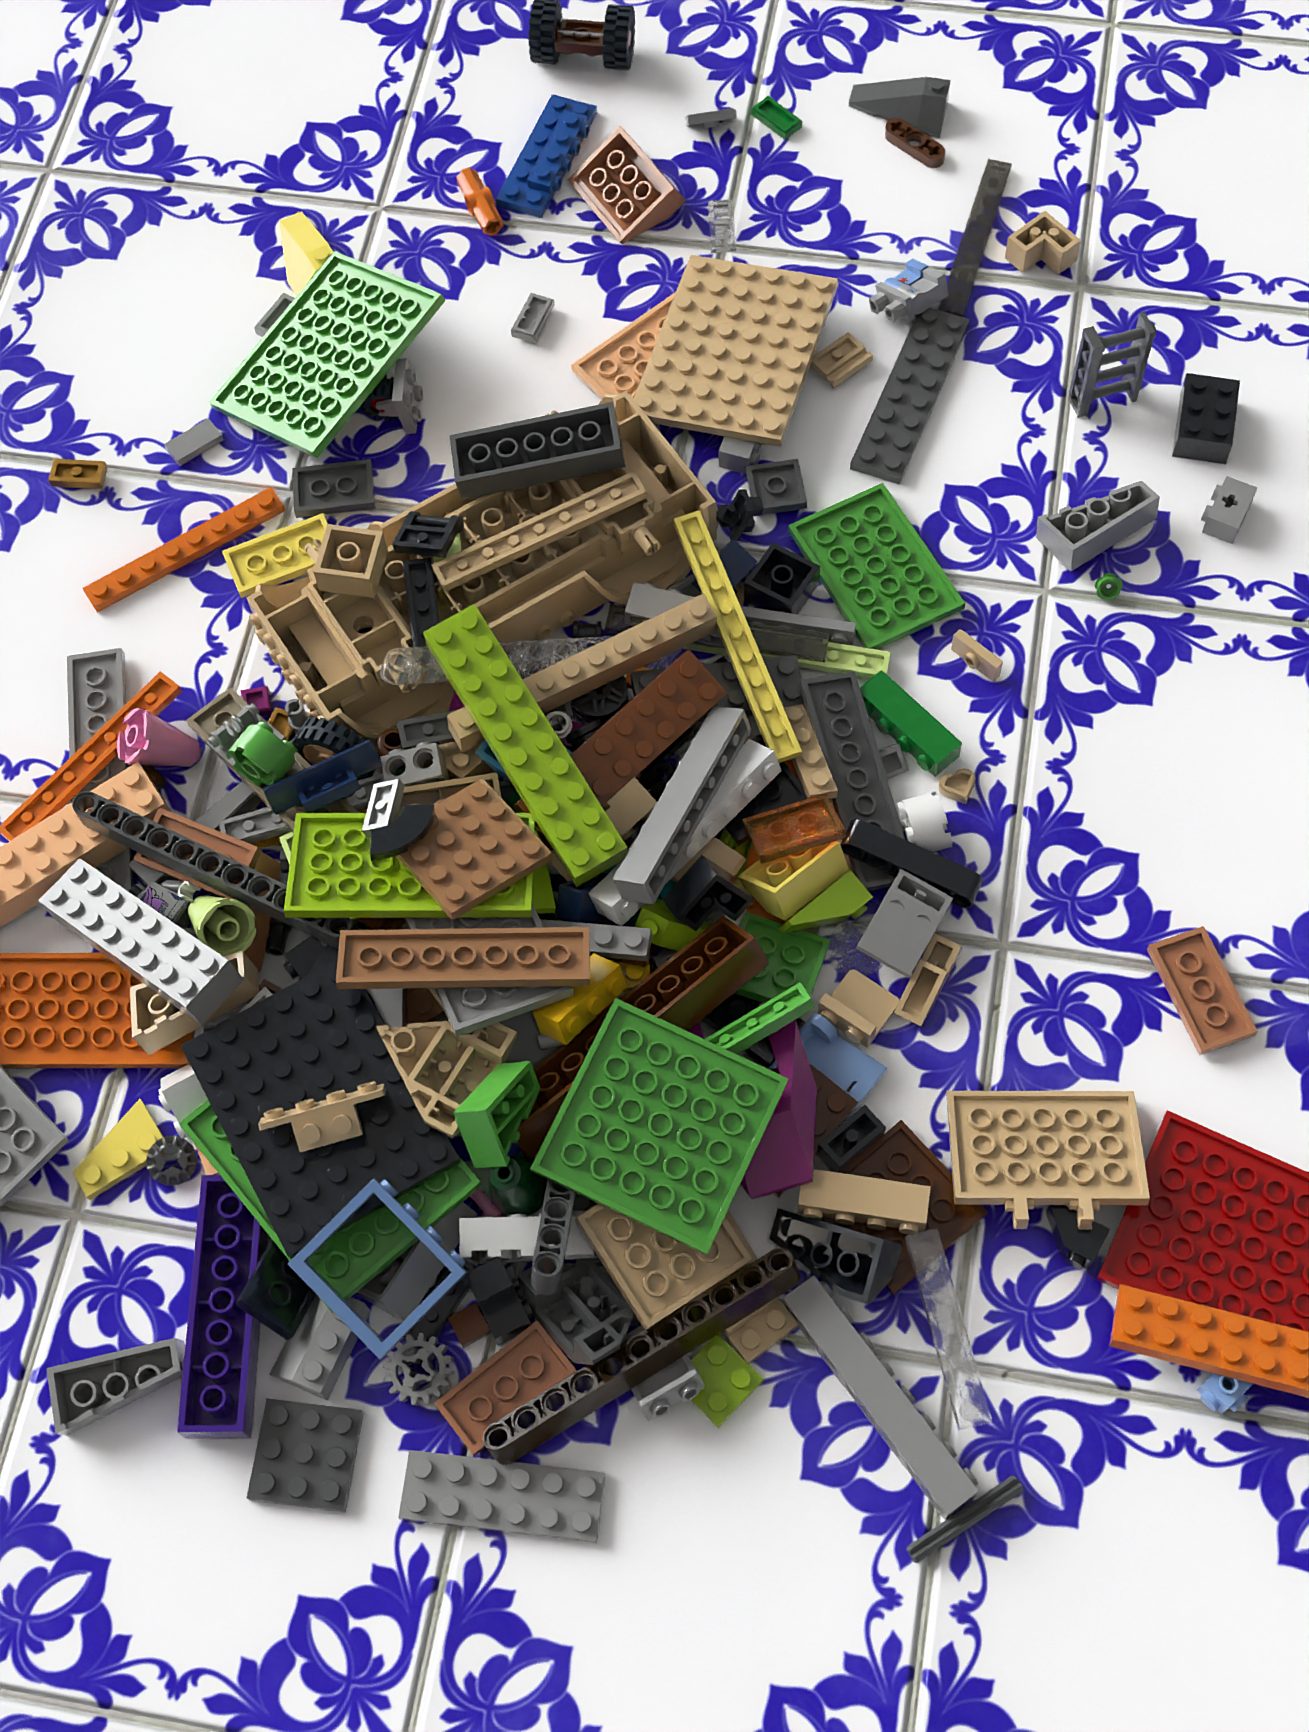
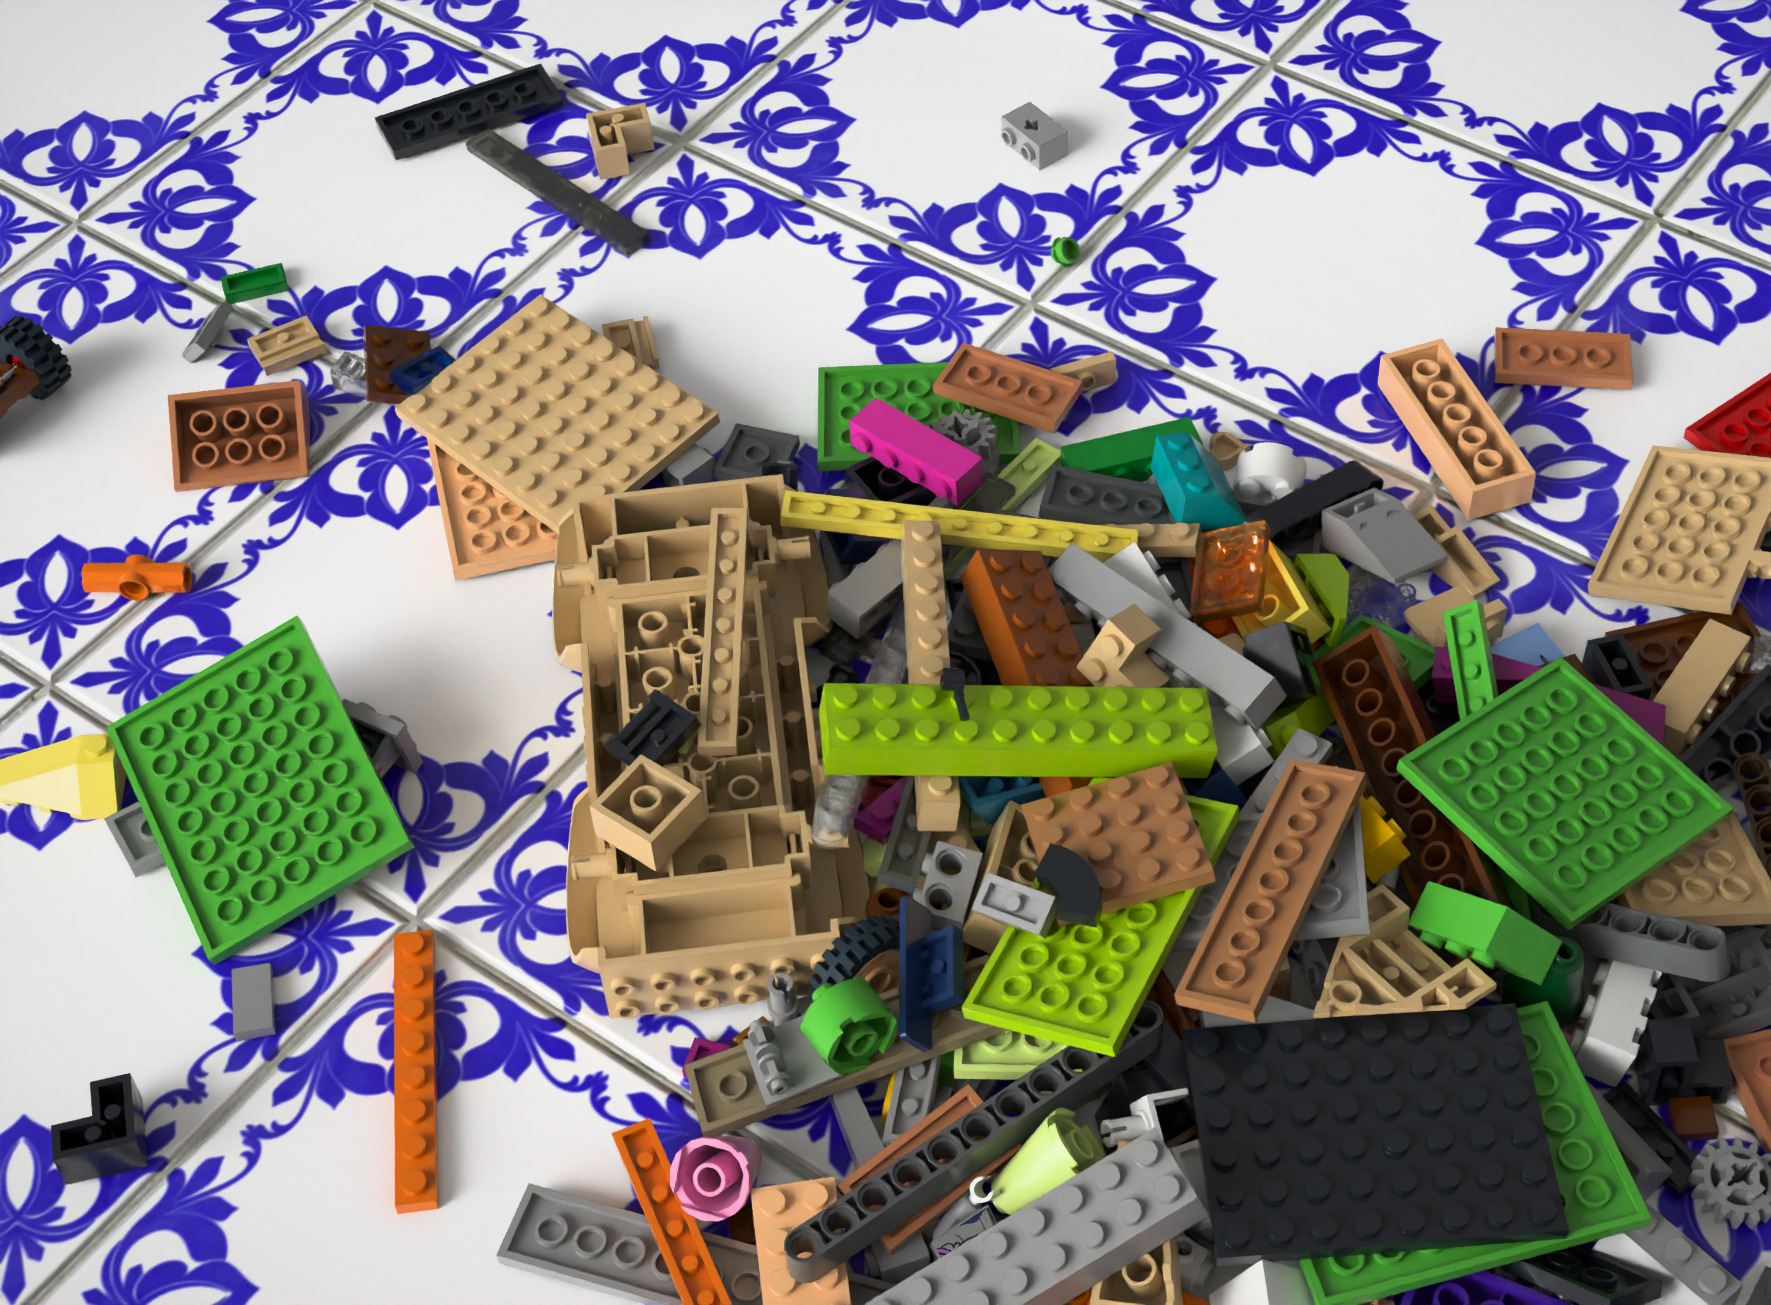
camera: 65 degrees left, 15 degrees down
(65, 422) = (106, 1141): none -> black brick
(77, 473) = (202, 1152): pearl gold plate -> none
(267, 961) = (1143, 1117): none -> white bracket
(274, 556) = (508, 957): light yellow plate -> none
(325, 1120) = (1410, 1111): tan bracket -> none
(333, 488) = (447, 868): dark grey plate -> none
(340, 1306) = (1568, 1162): medium blue window -> none
(420, 598) = (748, 782): black tile -> none
(515, 681) = (954, 680): none -> black hand
(532, 317) = (351, 587): light grey plate -> none
(537, 451) = (618, 586): dark grey brick -> none
(547, 156) = (124, 493): blue plate -> none
(639, 788) = (1119, 654): none -> tan brick
(725, 166) = (286, 345): none -> tan plate
(731, 250) = (420, 371): none -> clear blue plate
(741, 234) = (385, 350): none -> reddish brown plate
(802, 577) = (916, 451): none -> dark pink brick
(847, 601) = (968, 431): none -> light grey gear
(884, 774) = (1194, 483): none -> teal slope
(909, 292) = (593, 259): light grey hips -> none
(909, 395) = (716, 312): dark grey plate -> none
(915, 100) = (340, 167): dark grey wedge -> none
(923, 610) = (1008, 387): none -> nougat plate
(928, 152) = (365, 196): reddish brown beam -> none
(1022, 143) = (468, 111): none -> black plate
(1061, 934) = (1456, 429): none -> light nougat brick
(1091, 359) = (825, 130): dark grey fence -> none
(1098, 524) = (989, 233): light grey wedge -> none
(1206, 418) = (917, 109): black brick -> none

